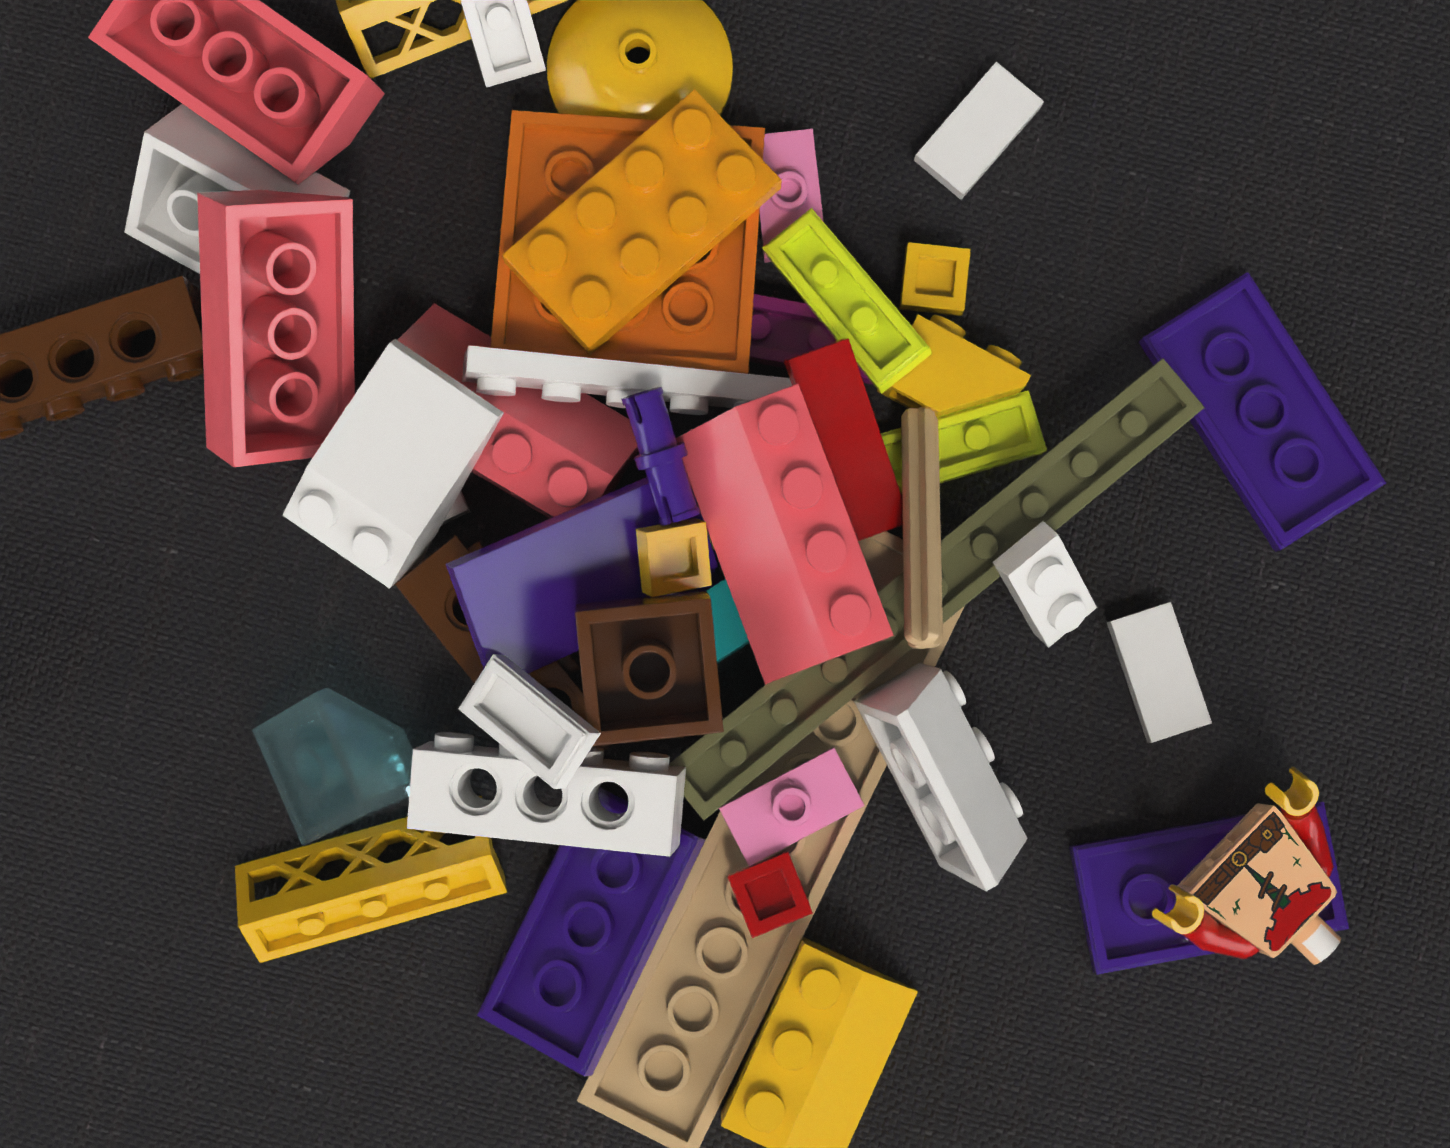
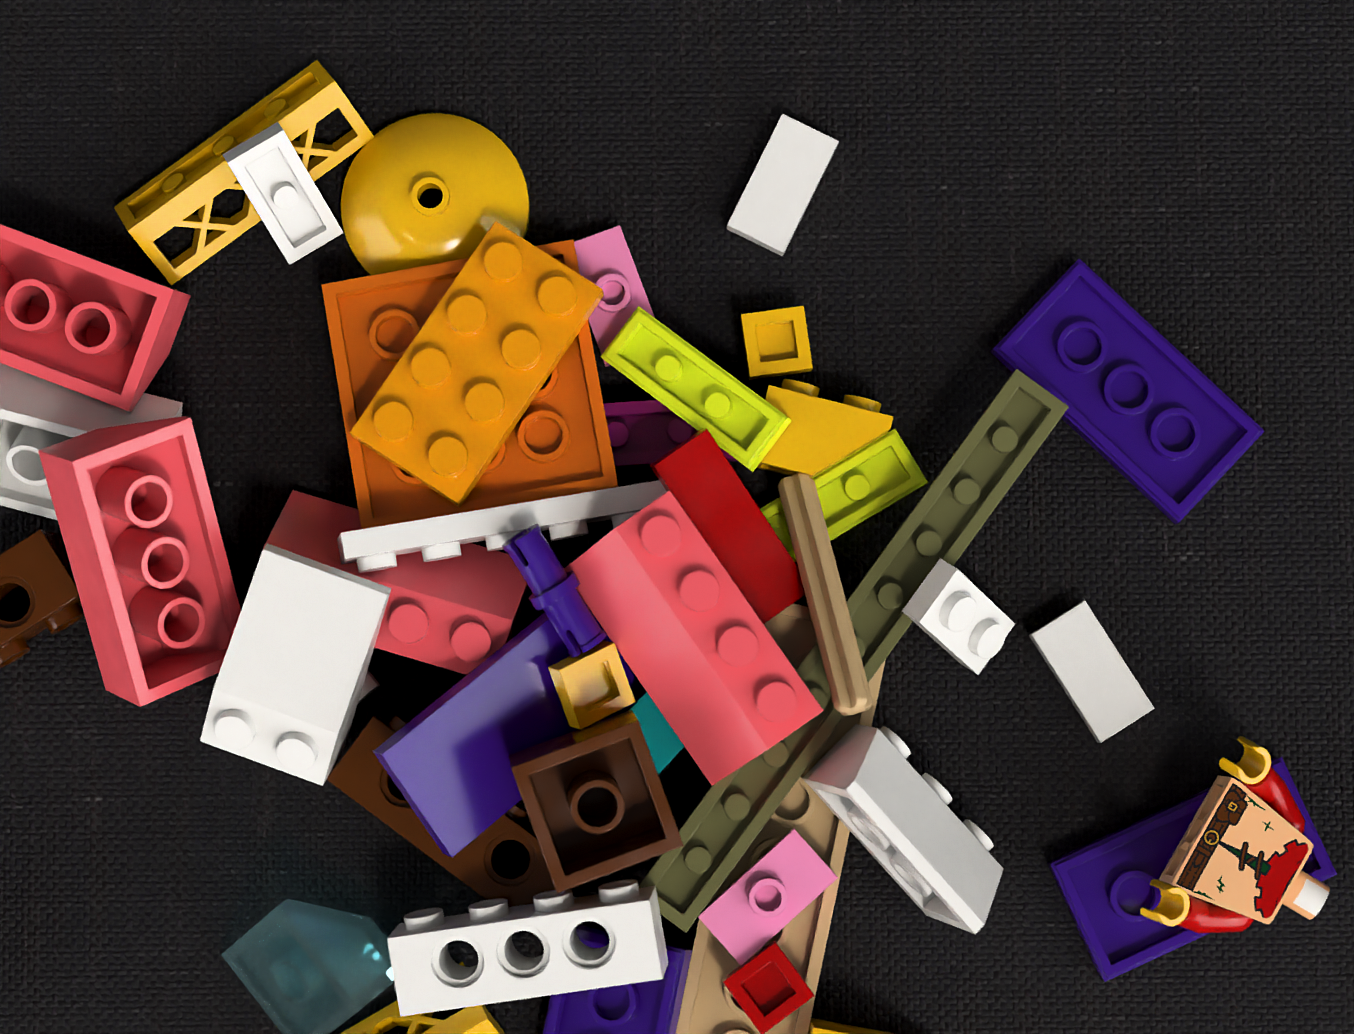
camera: 15 degrees left, 0 degrees up
(529, 721) = (493, 883): white tile -> none

